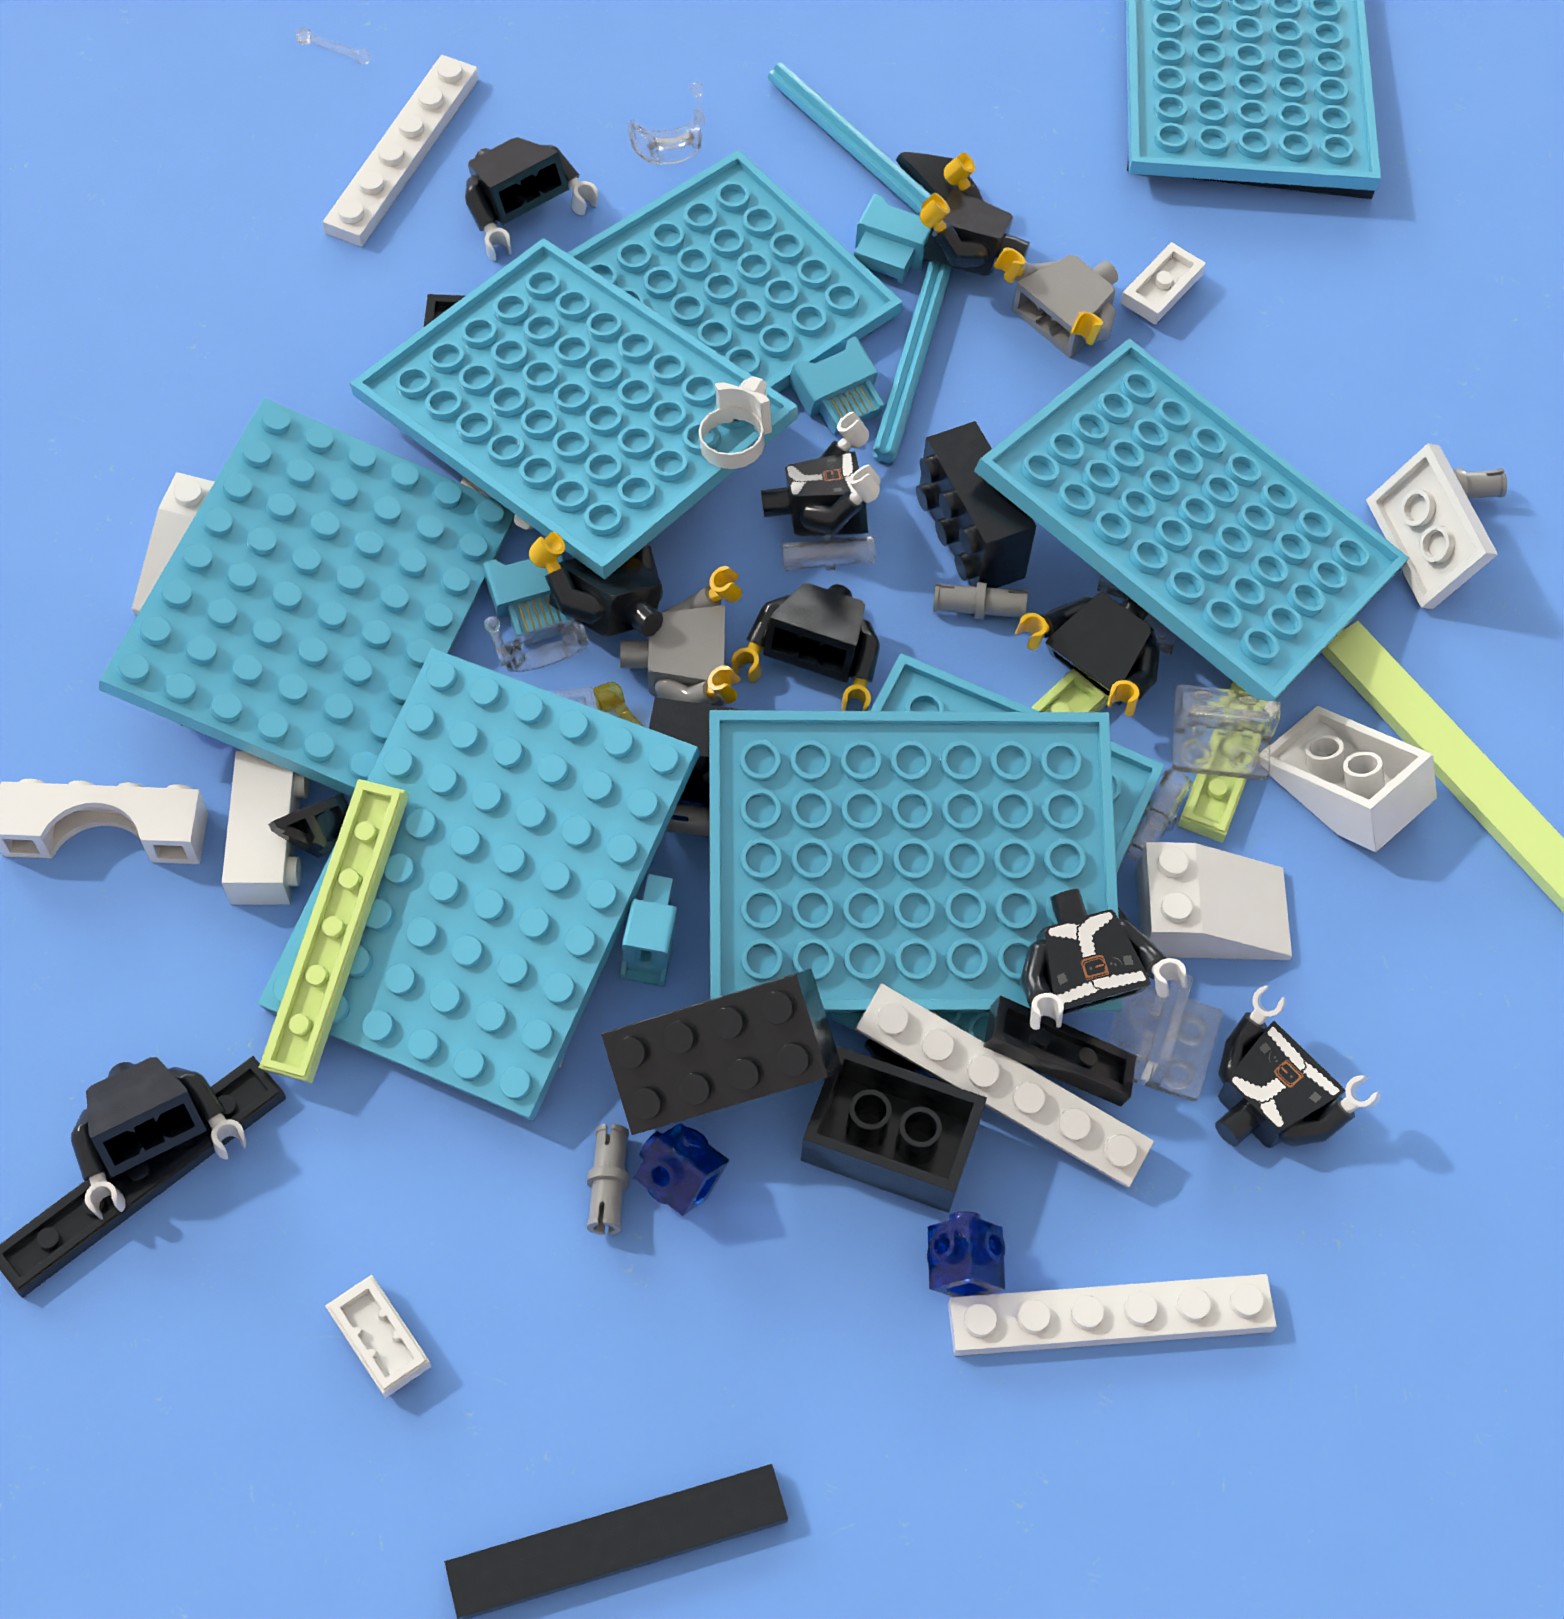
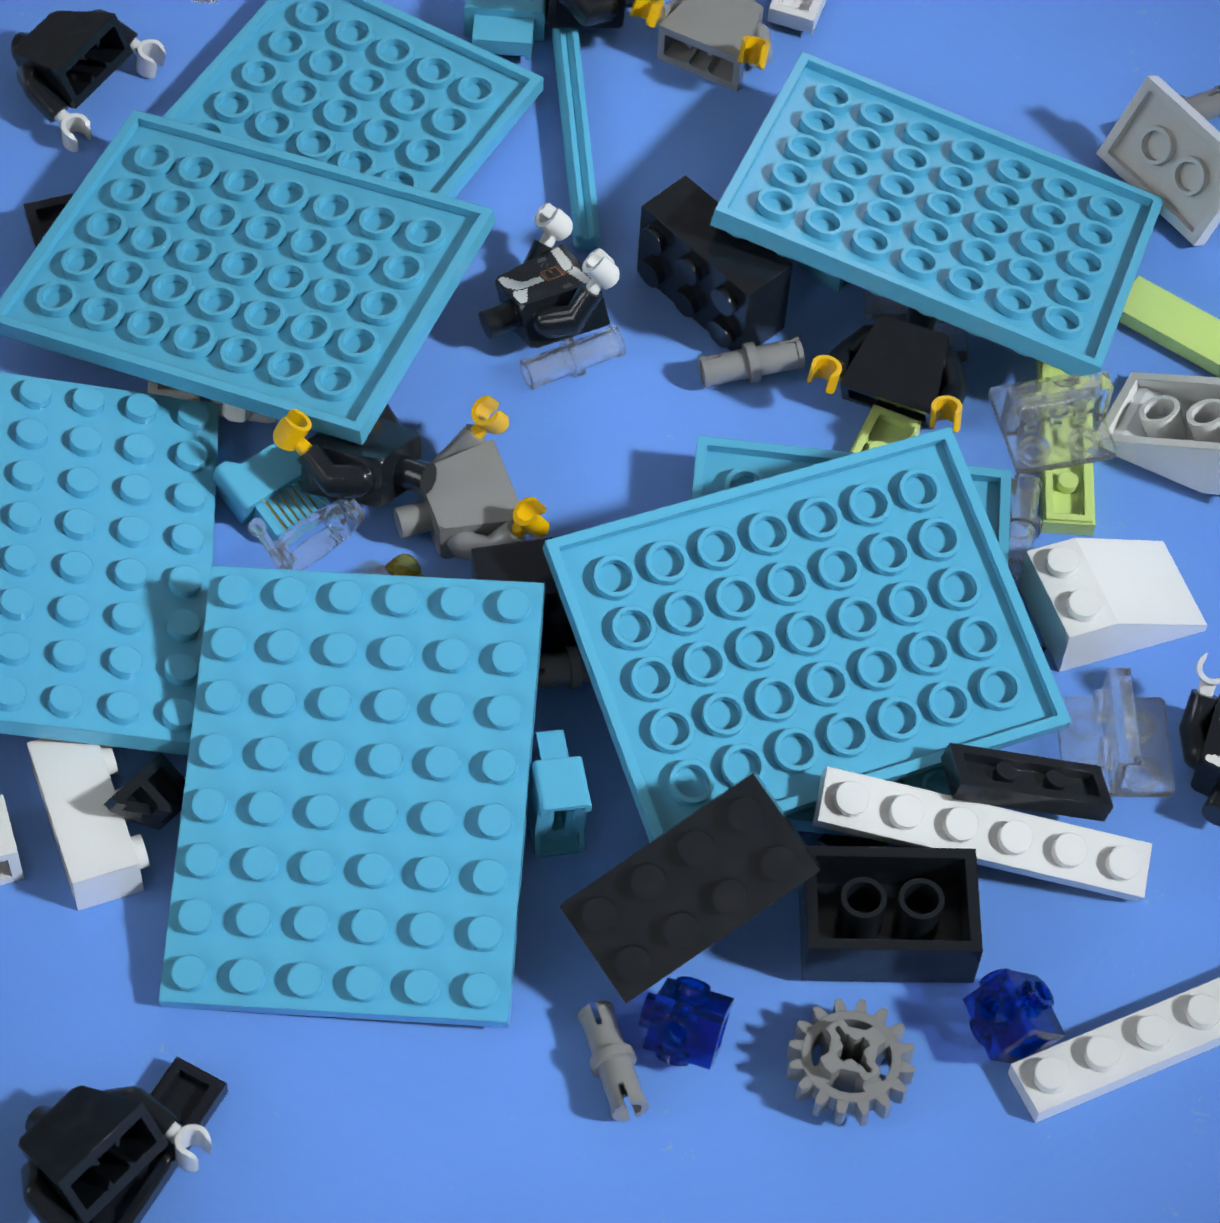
camera: 20 degrees left, 5 degrees down
(334, 931) = (221, 895): yellowish green tile -> none
(745, 403) = (436, 221): white piece -> none
(789, 1255) = (846, 1085): none -> light grey gear
(819, 633) = (601, 440): black torso -> none
(838, 385) = (513, 182): medium azure piece -> none
(1090, 962) = (1030, 679): torso -> none

